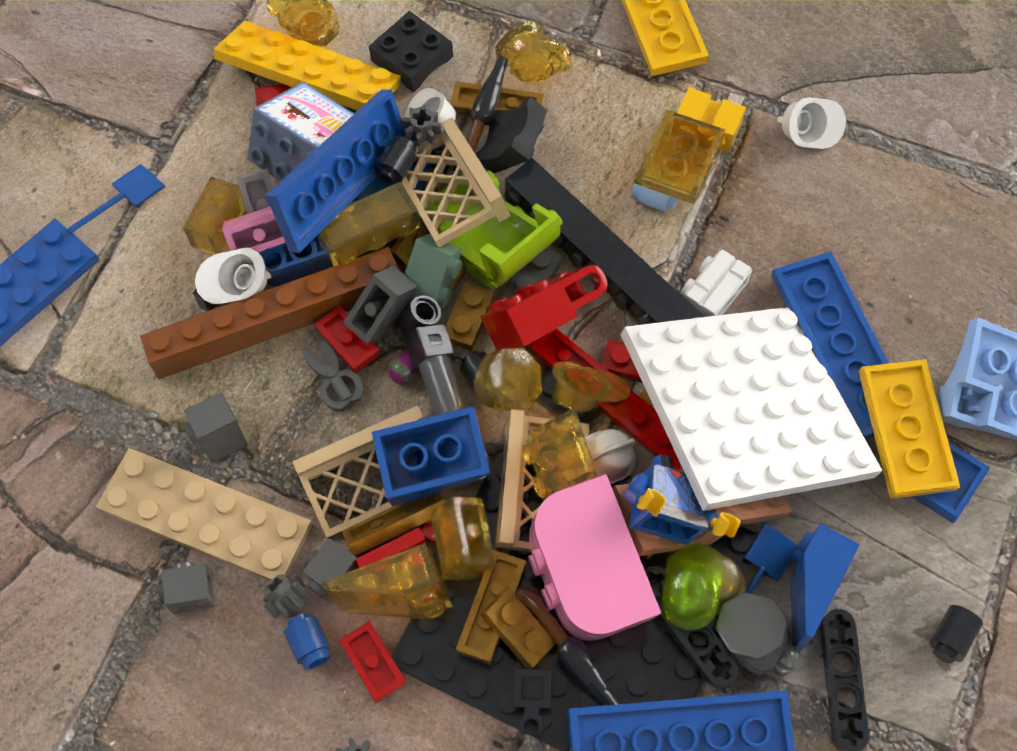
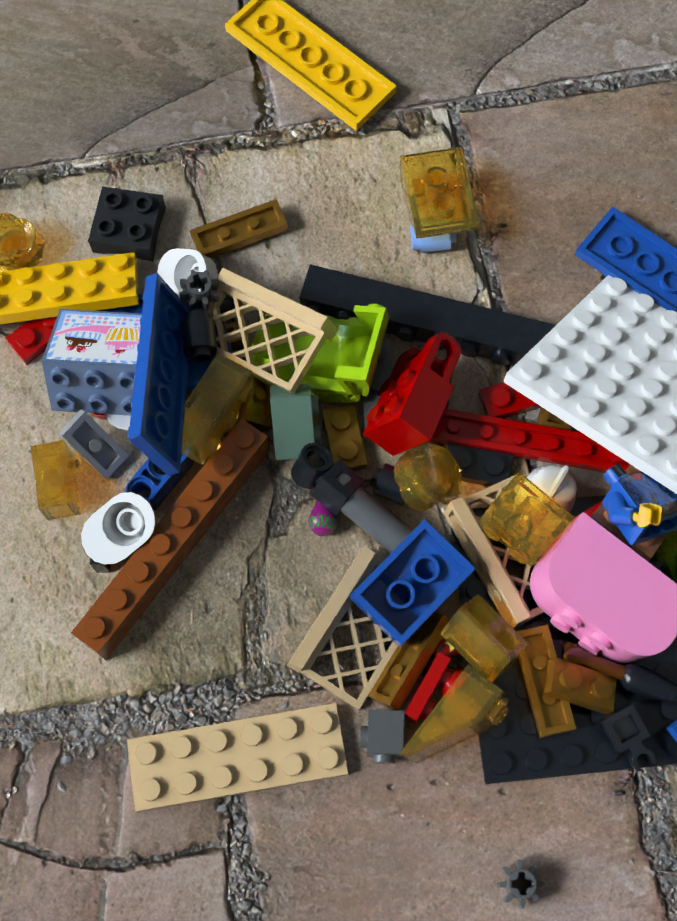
camera: 30 degrees left, 5 degrees up
(187, 588) = (269, 830): dark grey brick -> none
(214, 428) = (199, 674): dark grey brick -> none
(253, 231) = (111, 469): bright pink brick -> none
(285, 596) = (362, 783): dark grey gear -> none
(307, 641) = (408, 809): blue brick -> none
(330, 370) = (256, 559): dark grey piece -> none
(345, 342) = (255, 522): red plate -> none
(372, 662) = (474, 791): red plate -> none
(380, 304) = (270, 475): dark grey brick -> none
(486, 102) = (234, 233): black piece -> none
(512, 136) = (279, 252): black brick -> none
(531, 54) = (244, 167): clear yellow piece -> none
(586, 387) = (497, 443): clear yellow piece -> none
(717, 285) = (539, 289): white brick -> none
(723, 115) = (446, 134): yellow brick -> none
(814, 122) = (523, 99): white piece -> none

